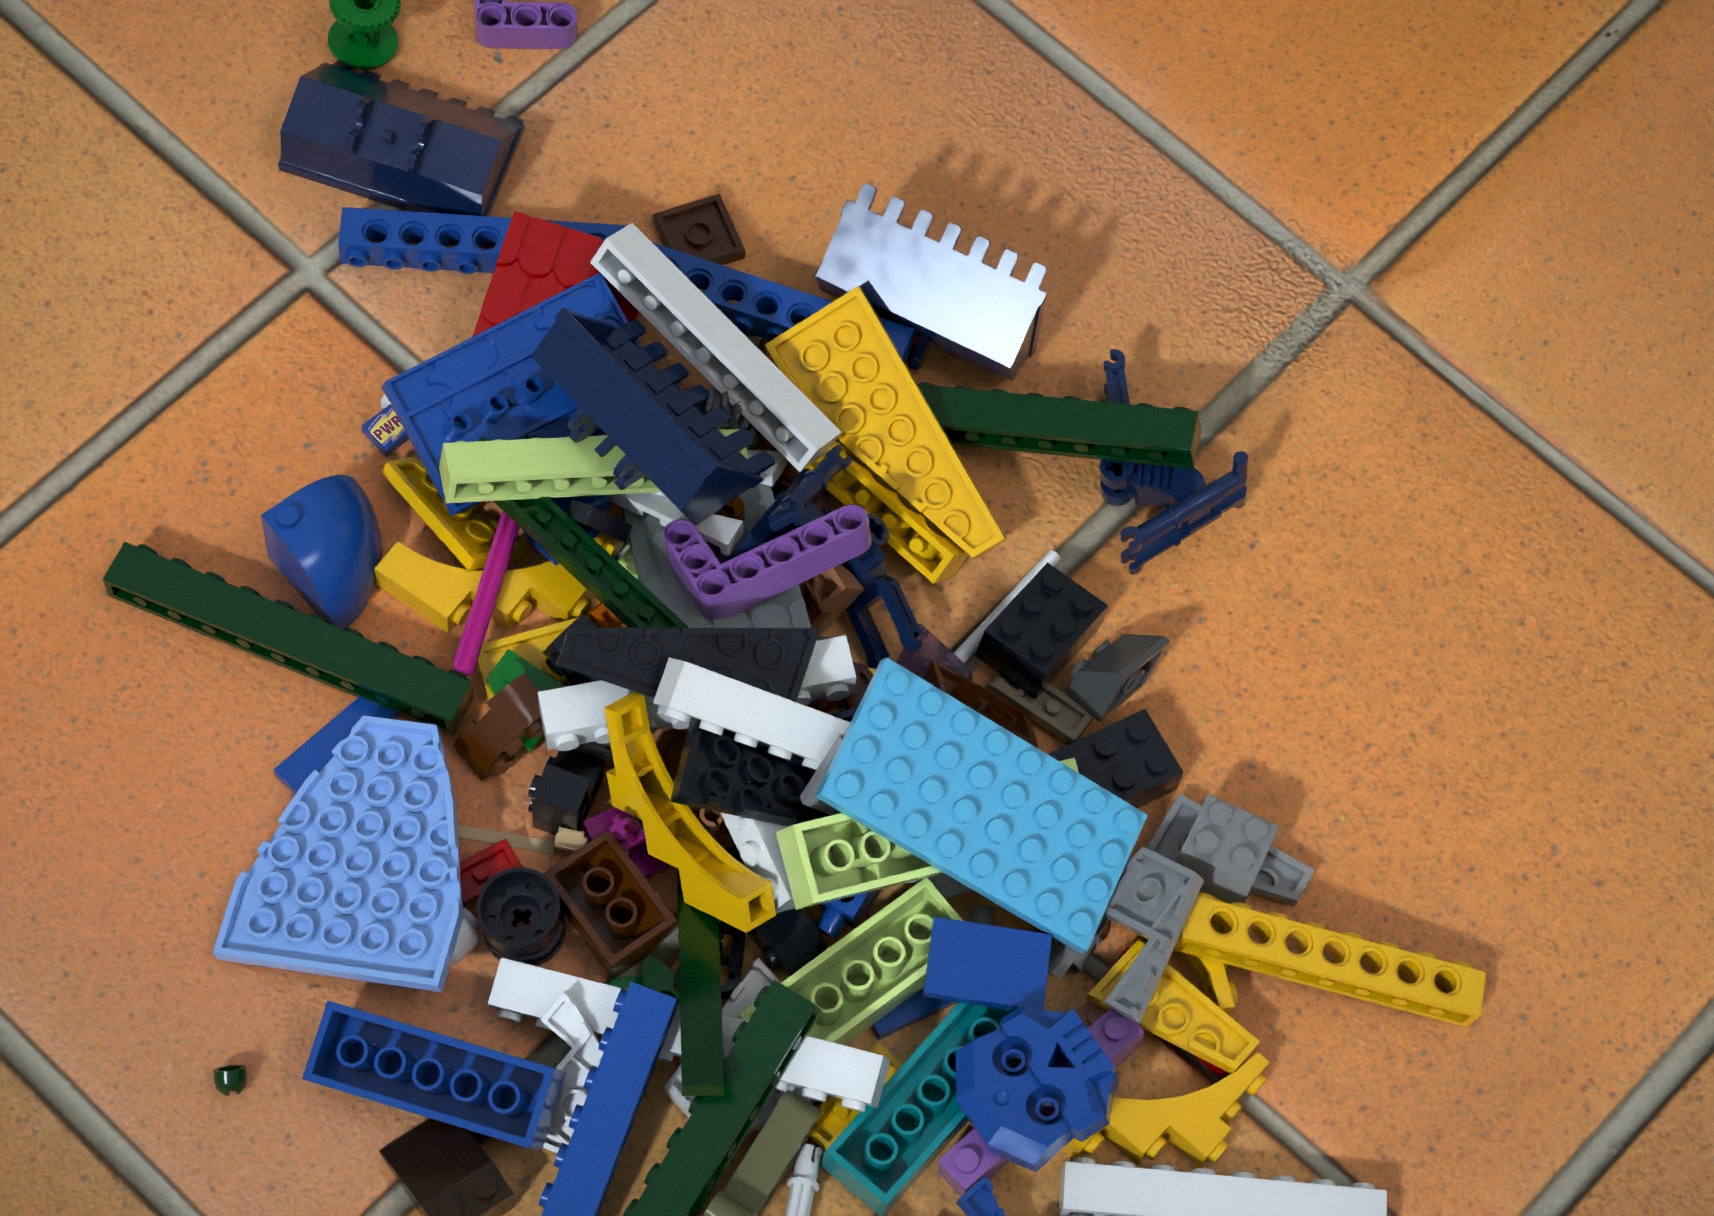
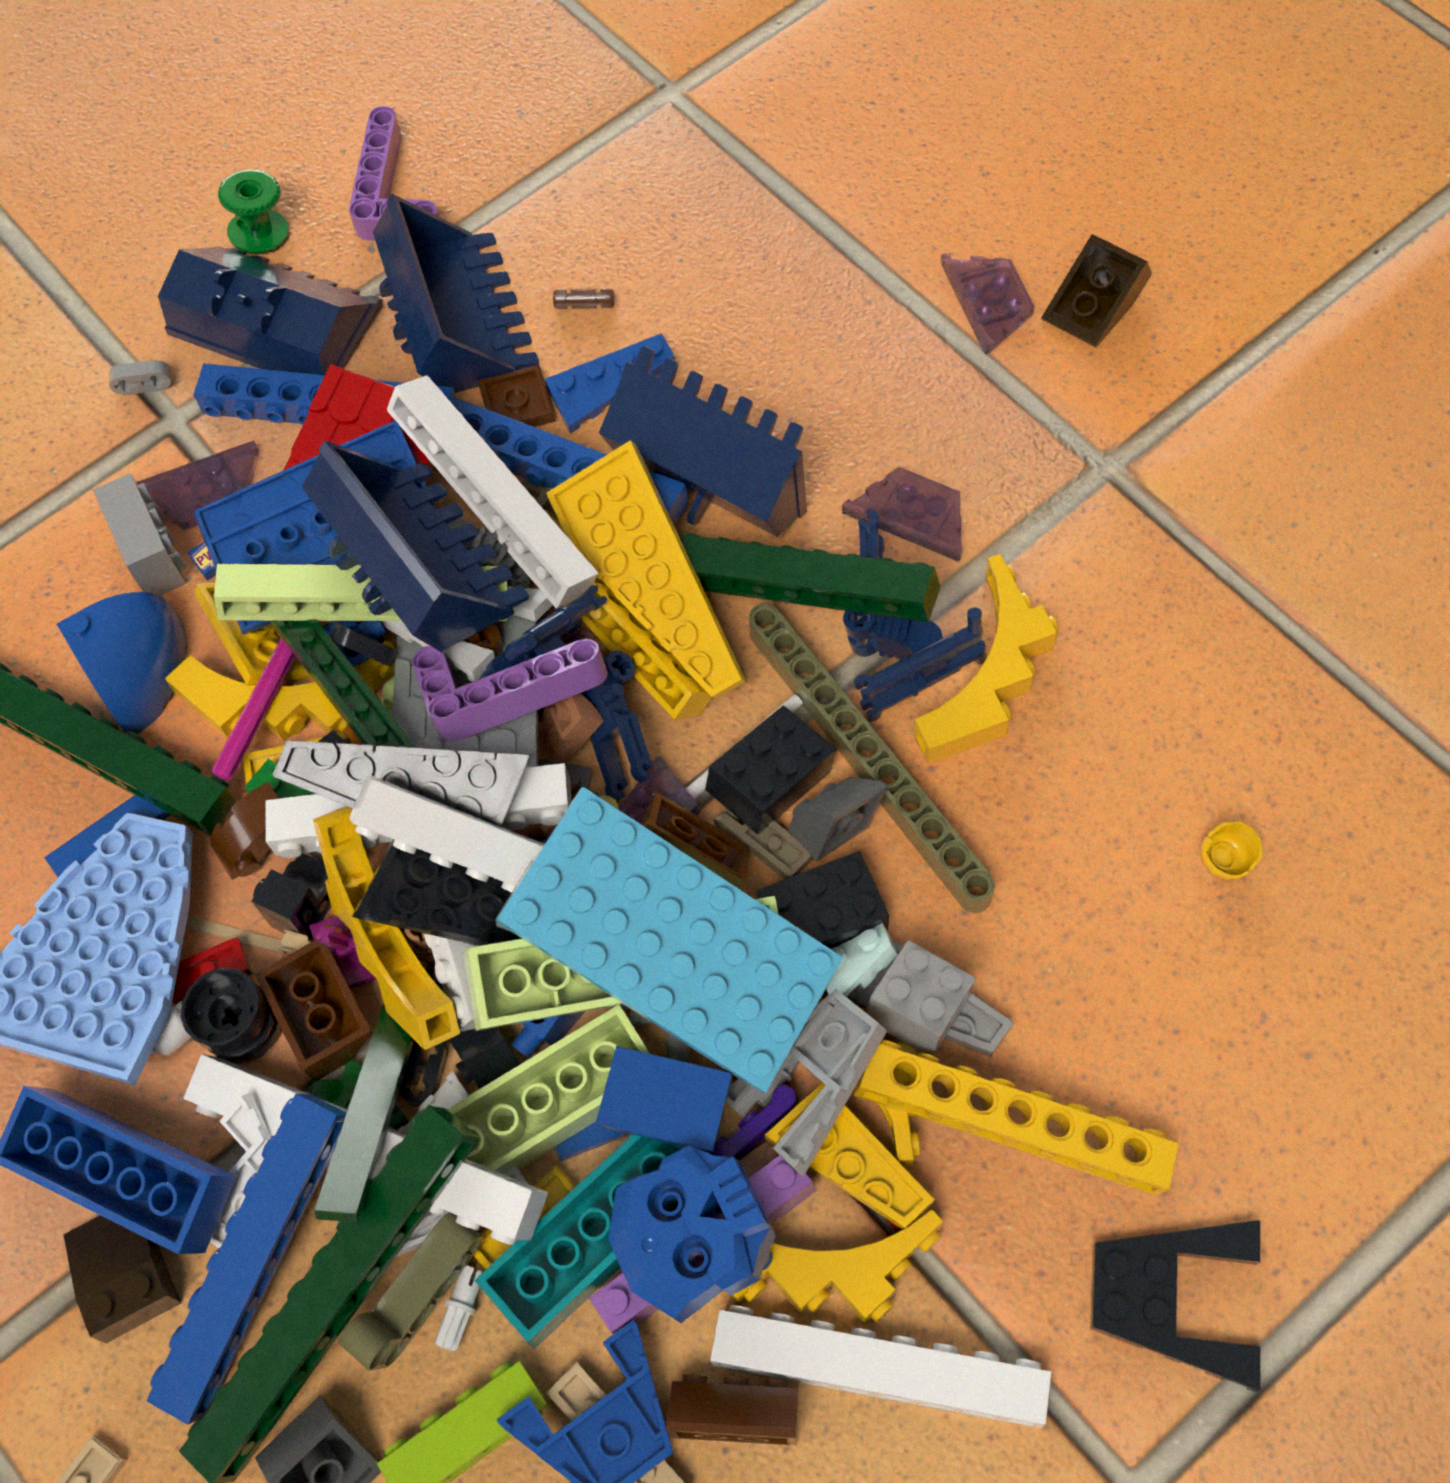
camera: 20 degrees right, 0 degrees up
(264, 224) = (140, 377): none -> light grey beam
(313, 410) = (139, 535): none -> light grey brick
(361, 350) = (201, 483): none -> clear purple wing
(606, 120) = (448, 298): none -> dark blue piece
(756, 113) = (583, 298): none -> reddish brown axle
(788, 212) = (592, 385): none -> blue wing
(1075, 989) = (756, 1125): none -> dark purple plate
(1153, 343) = (914, 511): none -> wing
(1153, 618) = (875, 767): none -> olive beam
(1166, 813) = (862, 959): none -> light aqua wing
(1204, 98) = (989, 296): none -> wing
(1245, 557) = (979, 709): none -> yellow arch
(1319, 91) = (1097, 291): none -> dark brown slope
(1458, 1116) = (1138, 1296): none -> black wing
(1511, 686) = (1231, 850): none -> yellow hair

